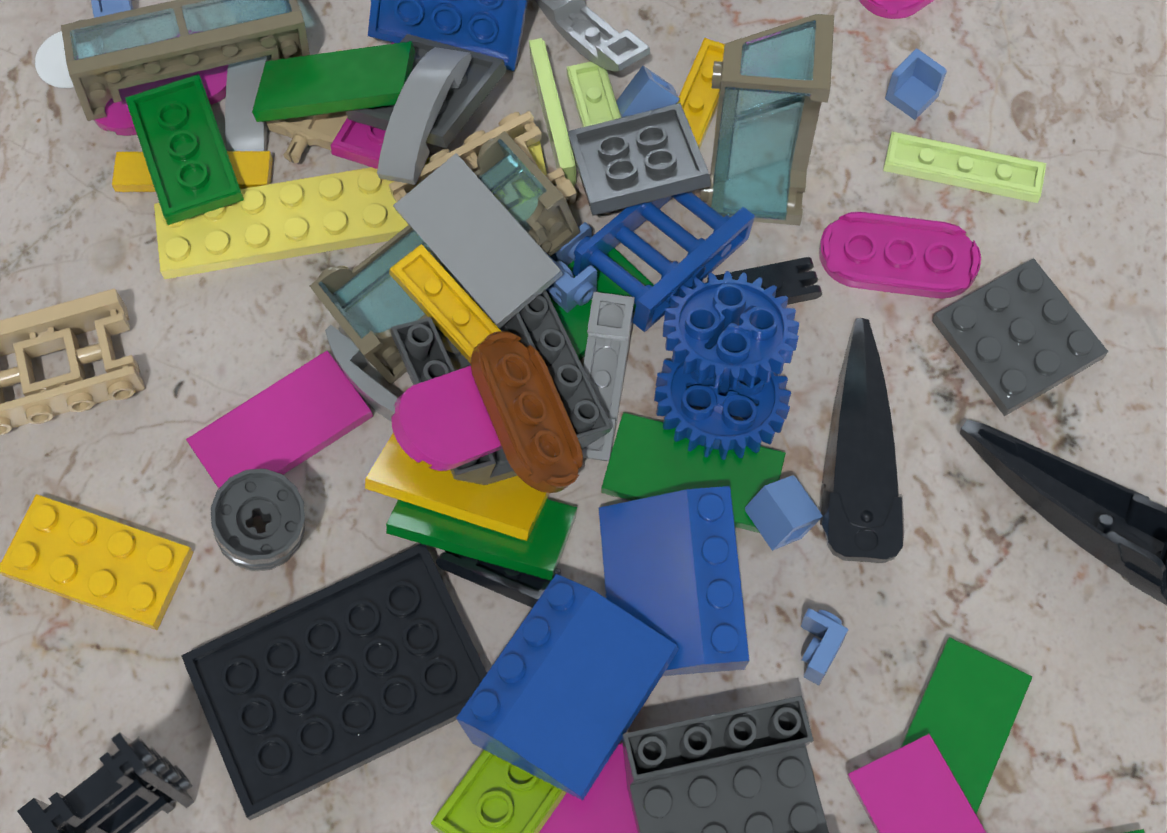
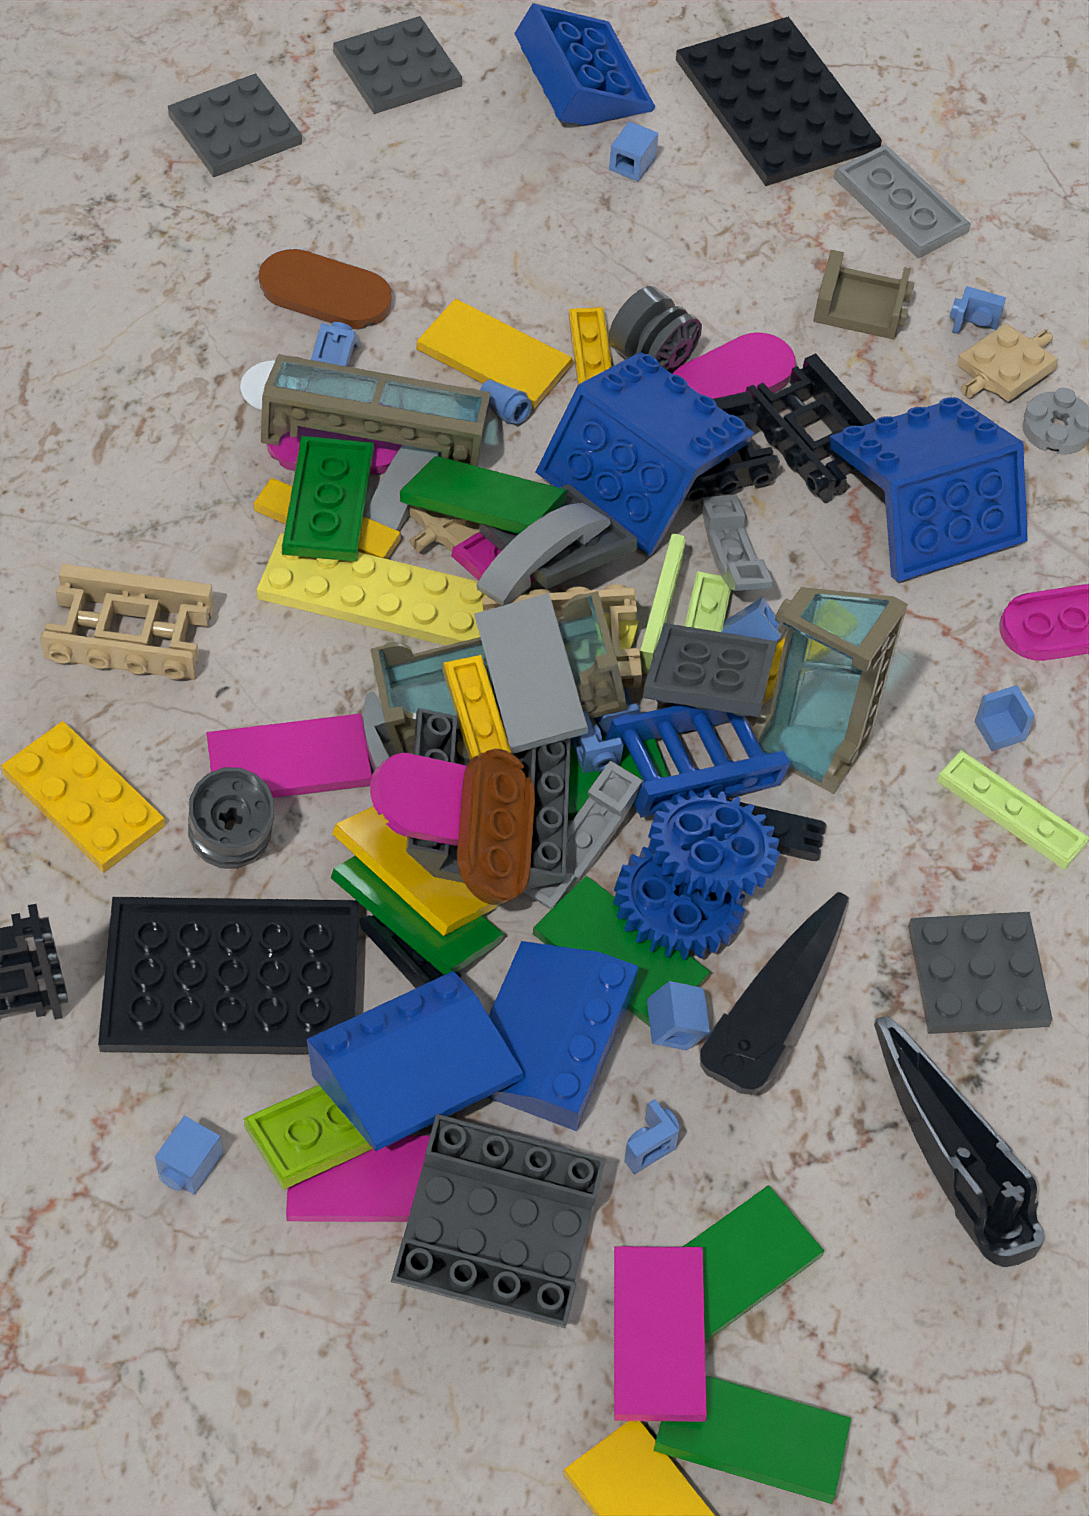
camera: 20 degrees right, 10 degrees down
(899, 255) = (909, 857): dark pink tile -> none

